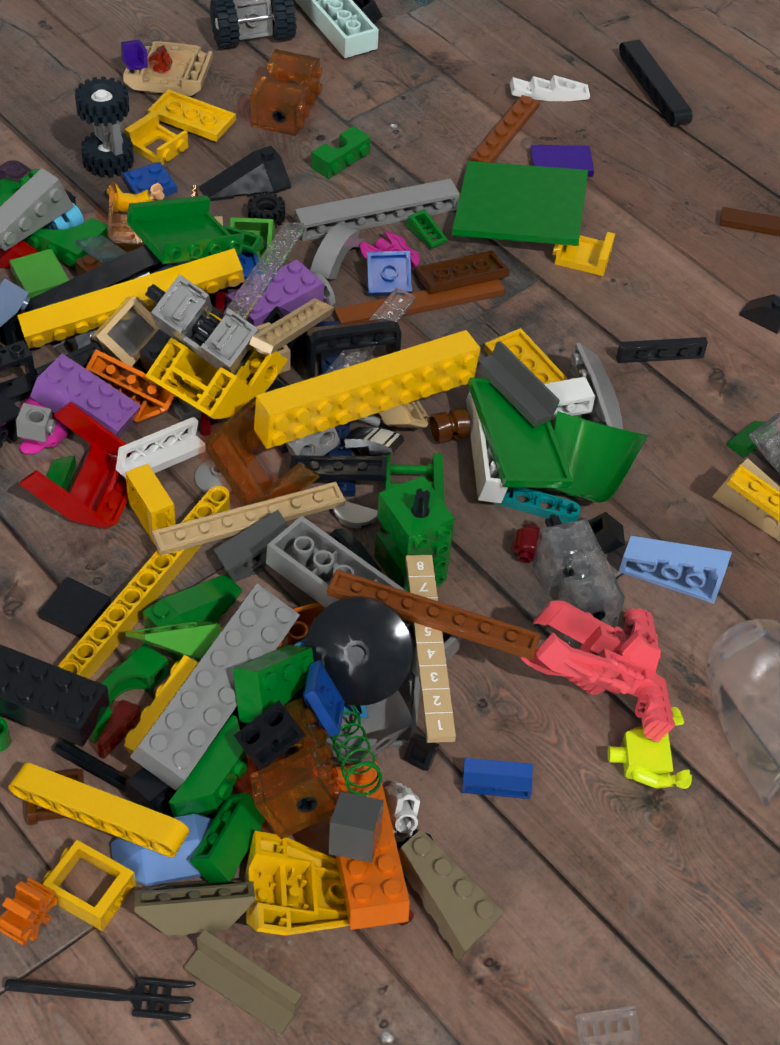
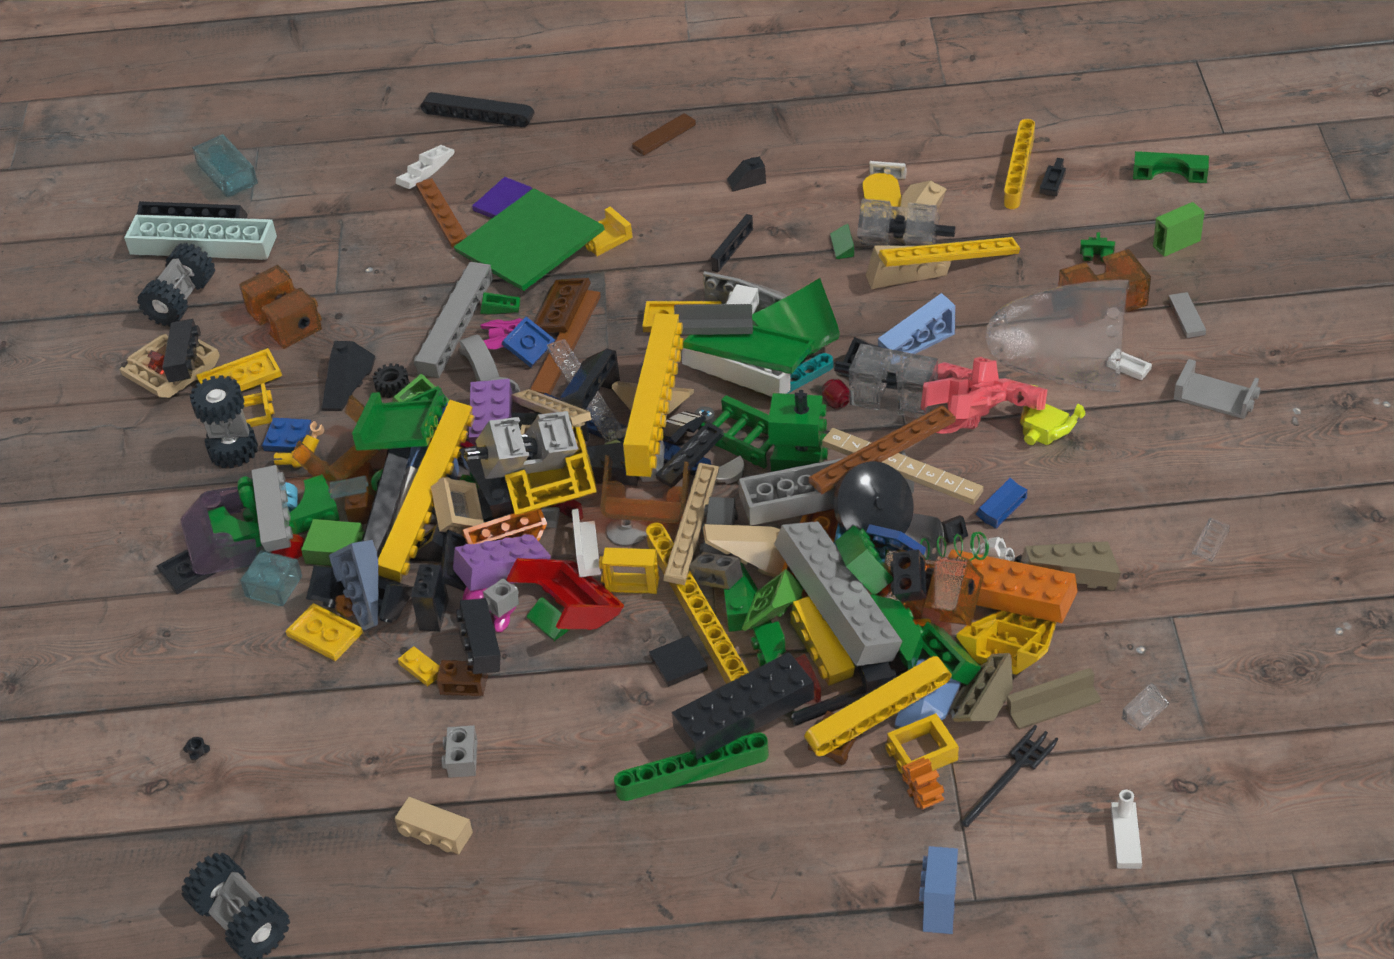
camera: 45 degrees left, 5 degrees down
(134, 54) = (145, 372): dark purple panel -> none
(176, 61) = (181, 350): none -> black brick
(199, 571) = (716, 570): none -> flat silver brick
(244, 569) = (749, 543): none -> tan wedge
(266, 269) = (458, 392): clear tile -> none
(352, 147) = (374, 309): green arch -> none
(355, 827) = (1009, 568): dark grey head -> none
(412, 454) = (707, 412): none -> dark grey tile
(450, 425) = (701, 380): reddish brown wheel -> none

